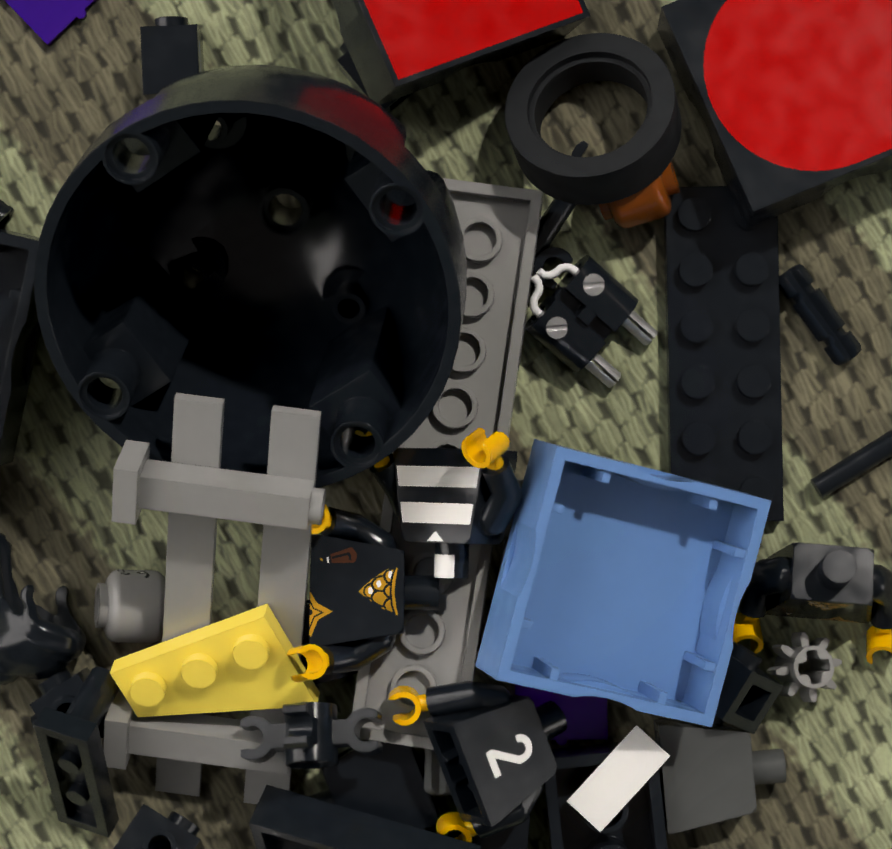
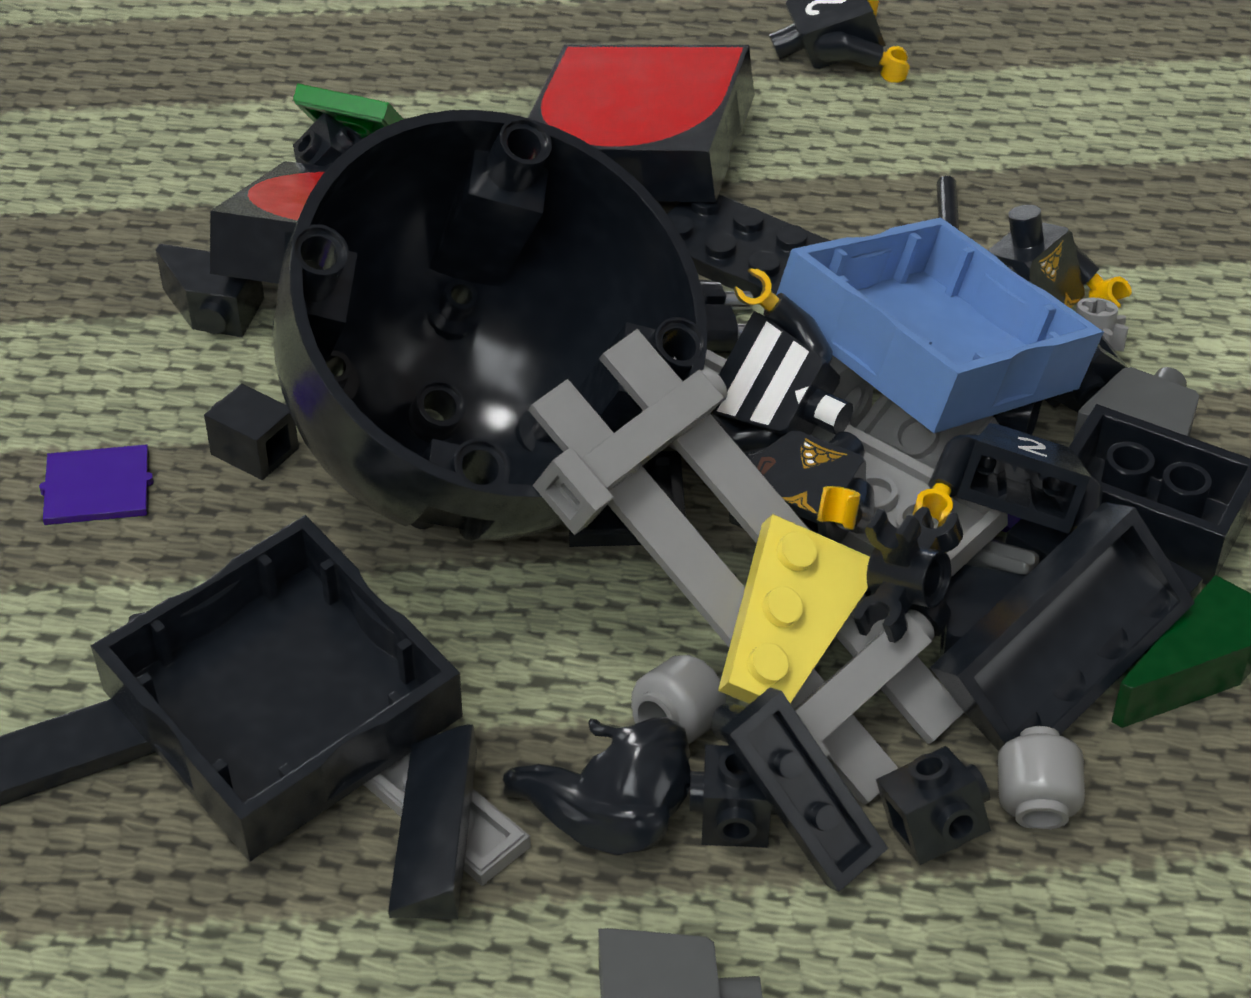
camera: 55 degrees left, 45 degrees down
(618, 778) = (1107, 436): white sticker -> none
(819, 315) = (819, 213): black axle -> none

